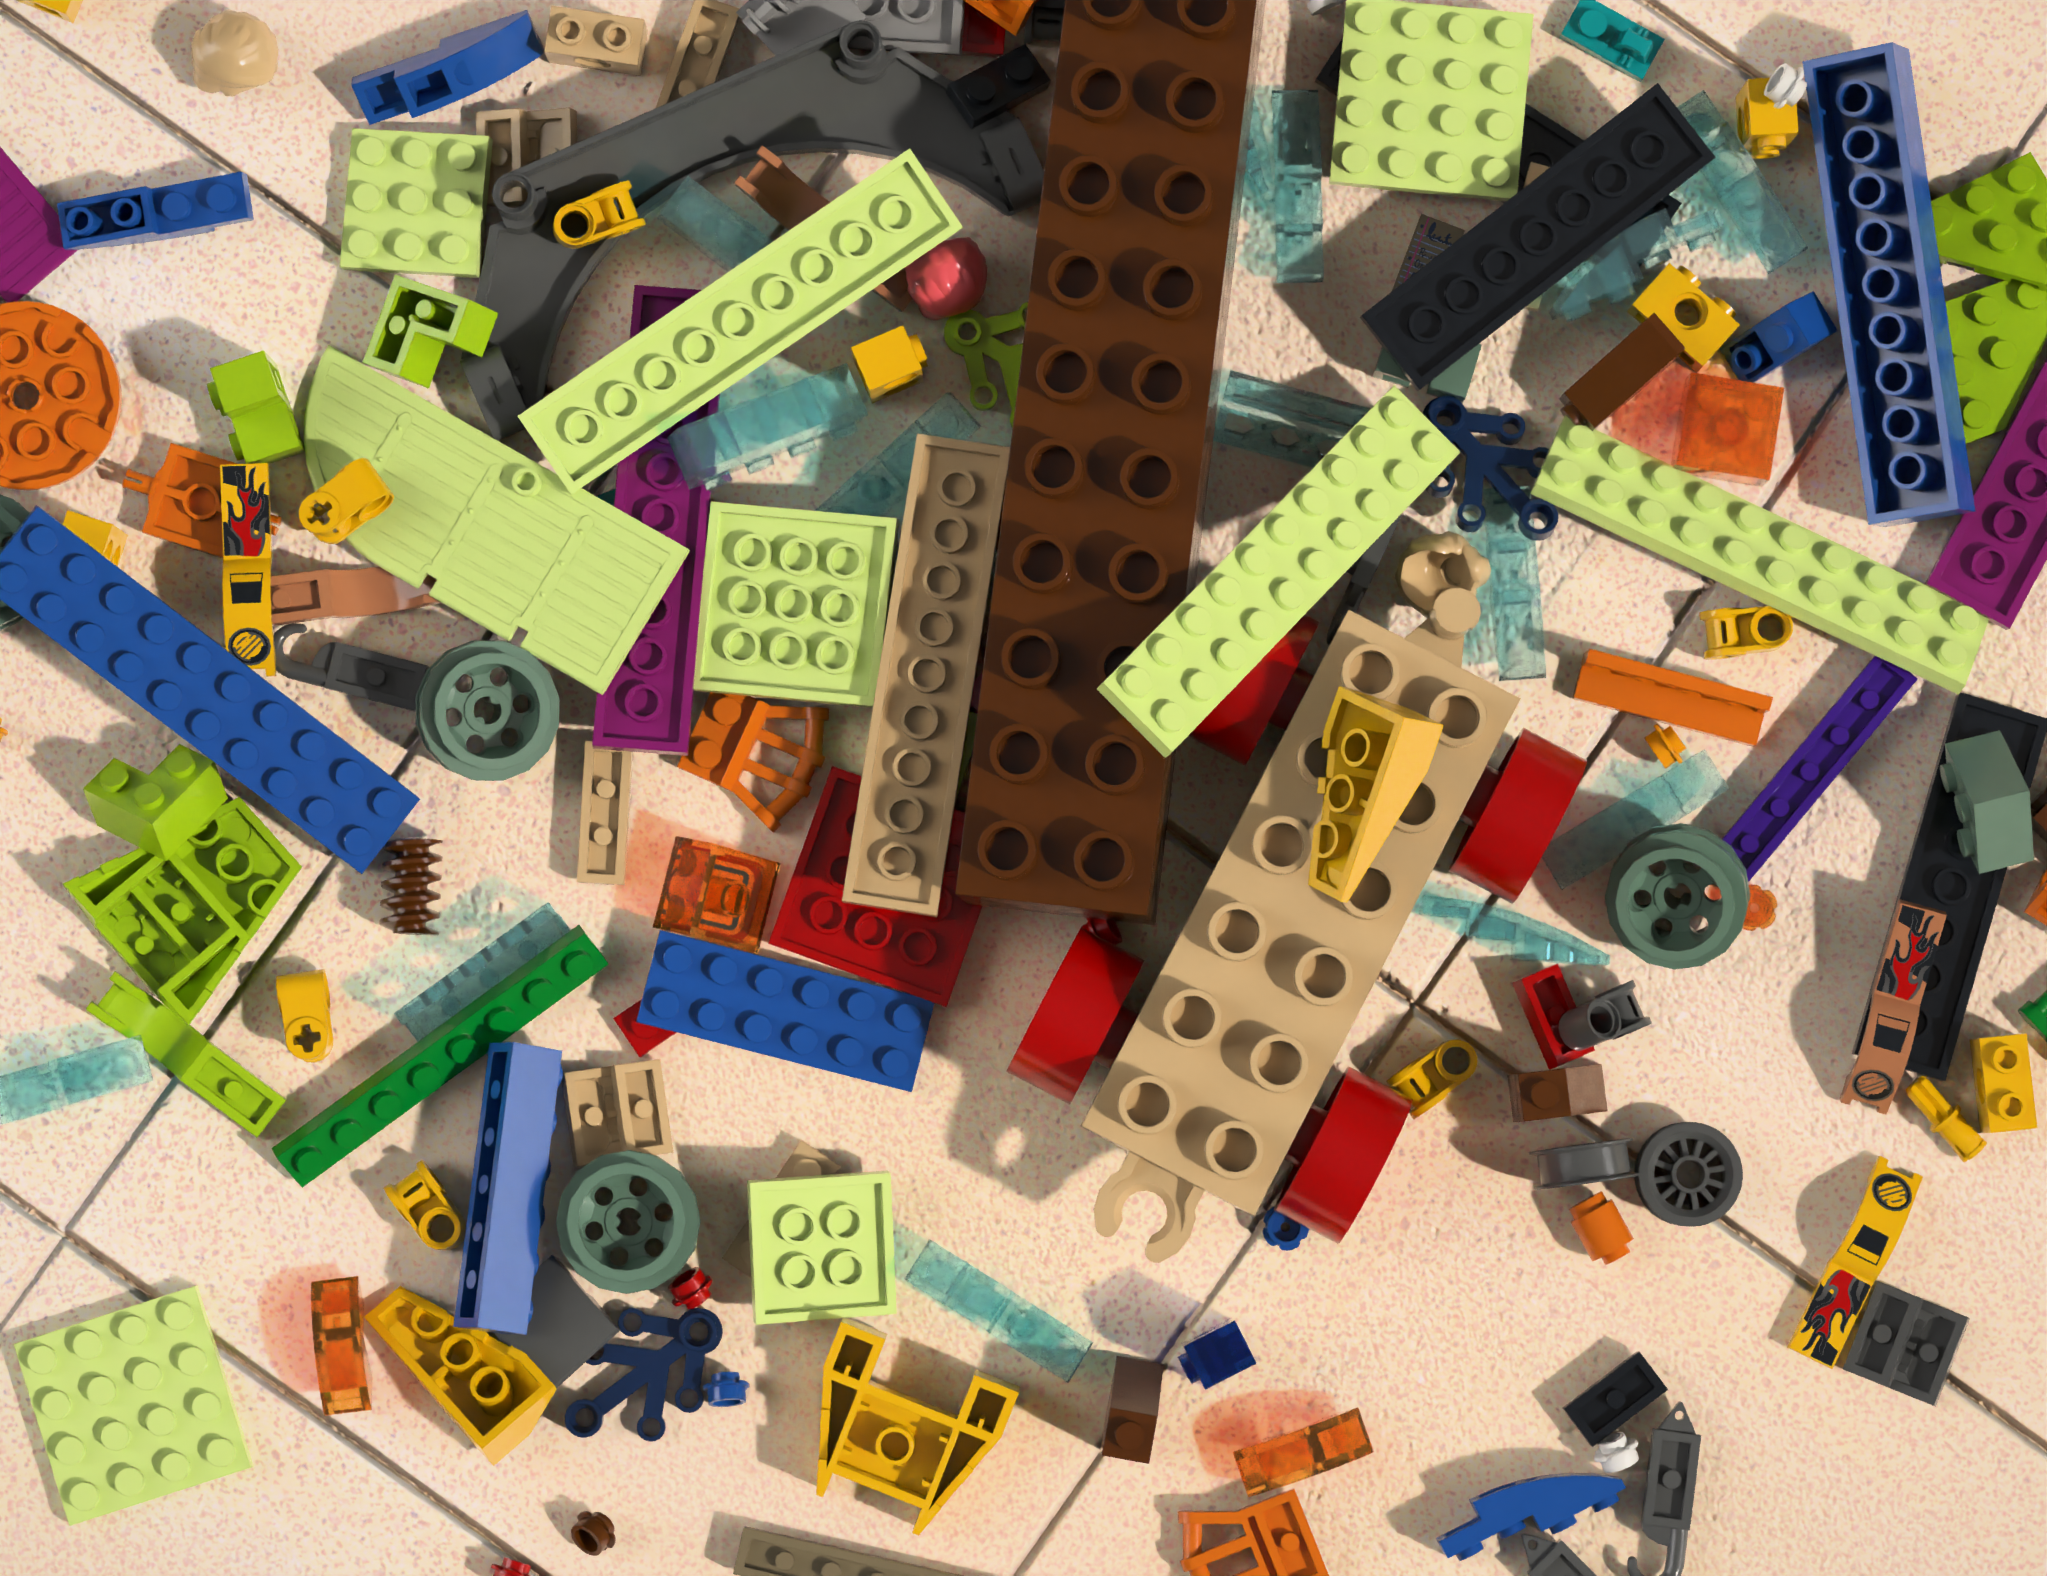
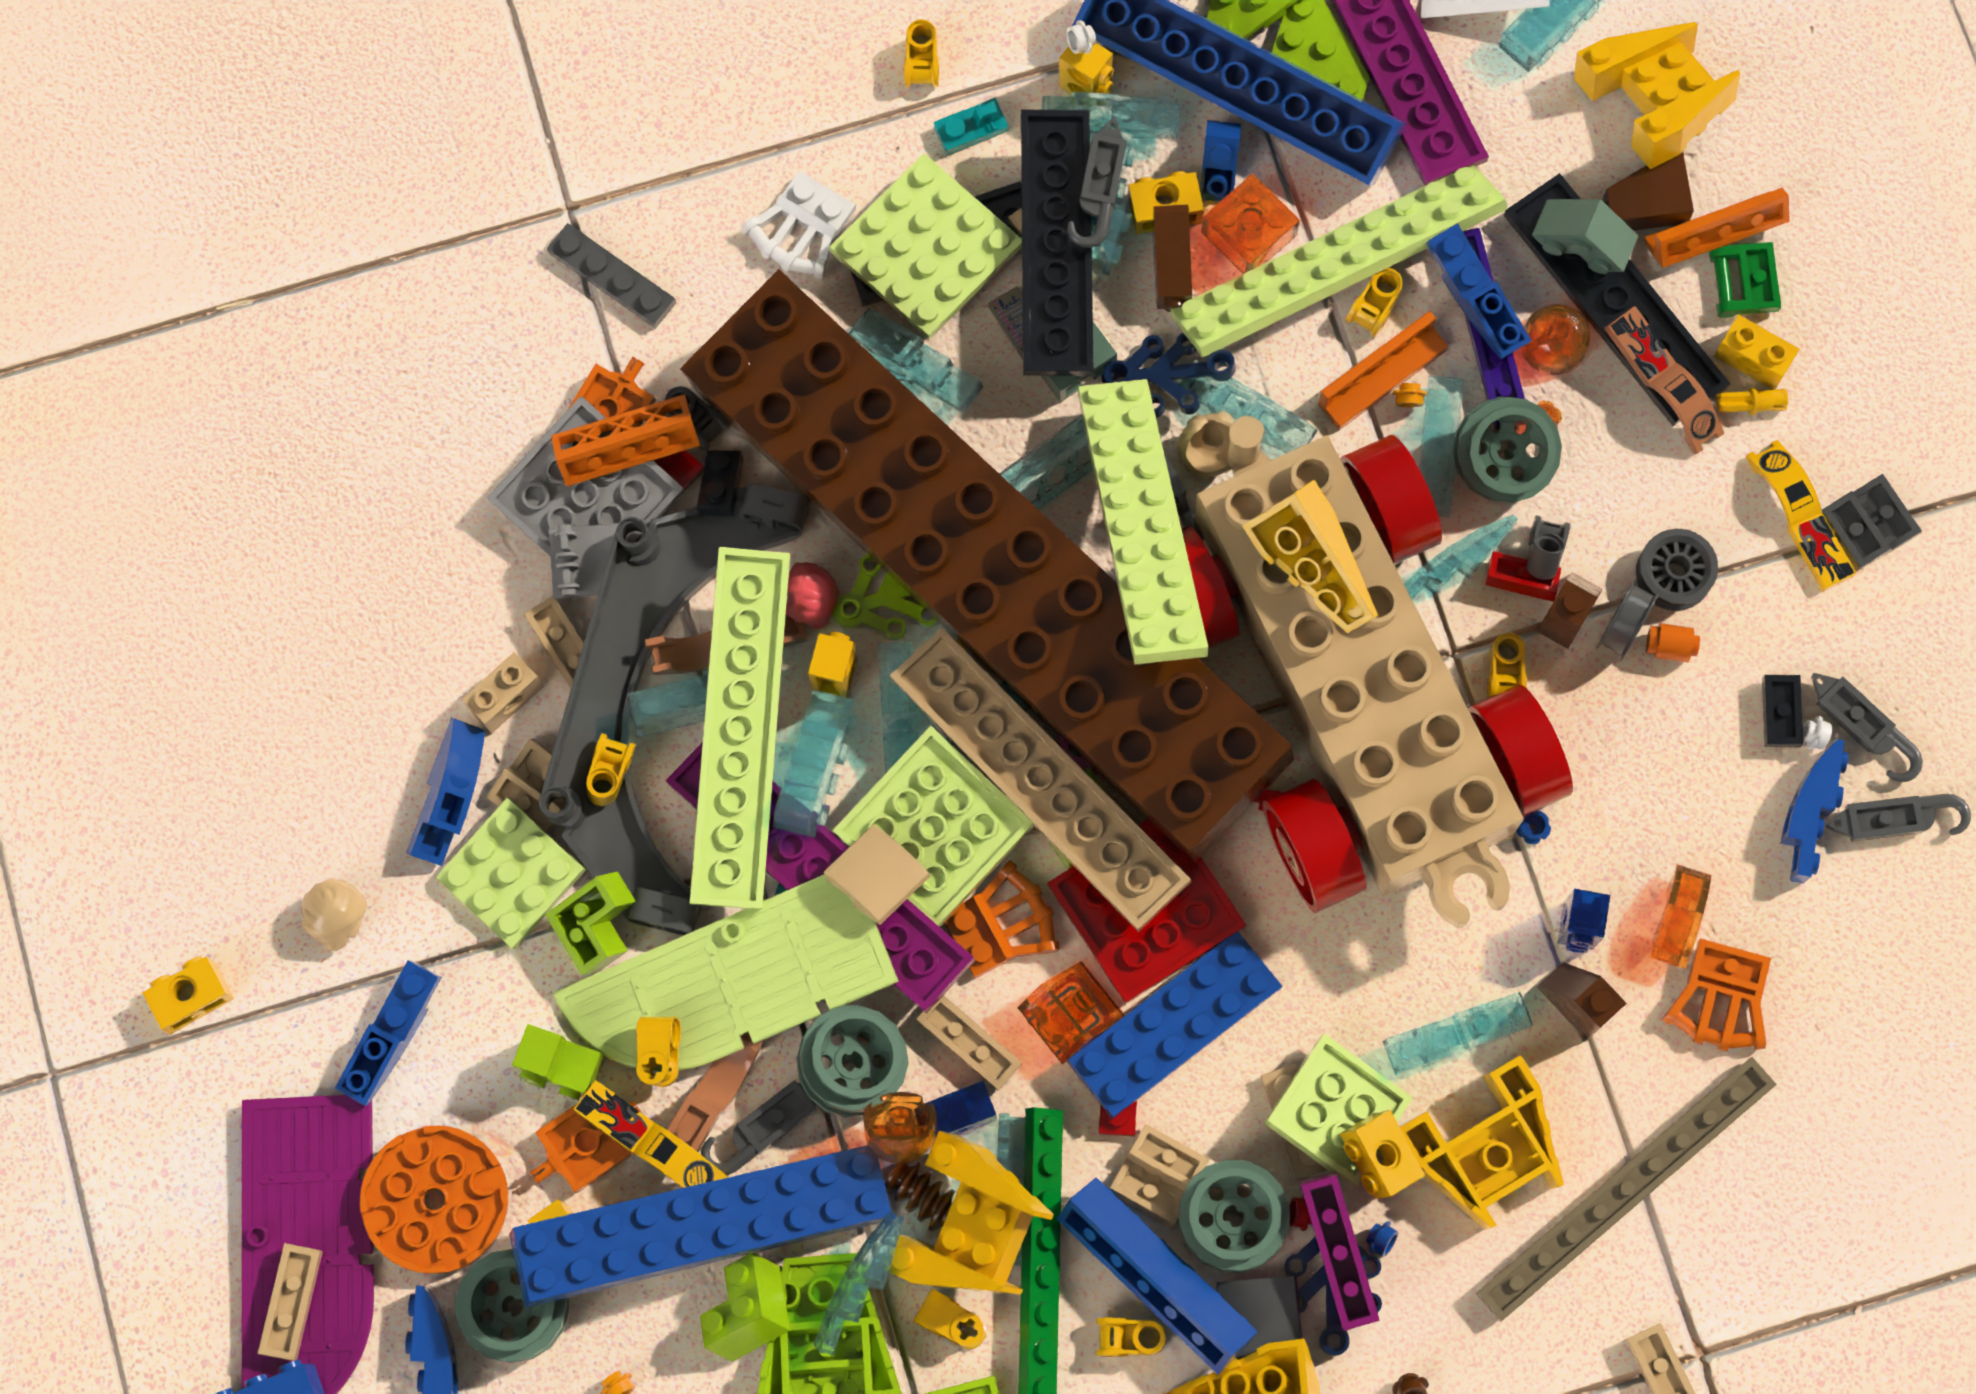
camera: 45 degrees left, 10 degrees down
(282, 892) = (866, 1270): none -> clear light blue slope
(415, 974) = (980, 1228): none -> yellow wedge
(452, 813) = (900, 1127): none -> clear orange cylinder
(519, 857) = (964, 1109): none -> clear blue brick
(672, 1356) = (1339, 1251): none -> magenta brick
(694, 585) = (876, 874): none -> tan slope
(803, 1353) = (1399, 1162): none -> yellow brick
(1636, 235) = (1100, 182): none -> dark grey plate
(1834, 733) = (1476, 293): none -> blue slope
(1853, 855) = (1558, 339): none -> clear orange cylinder

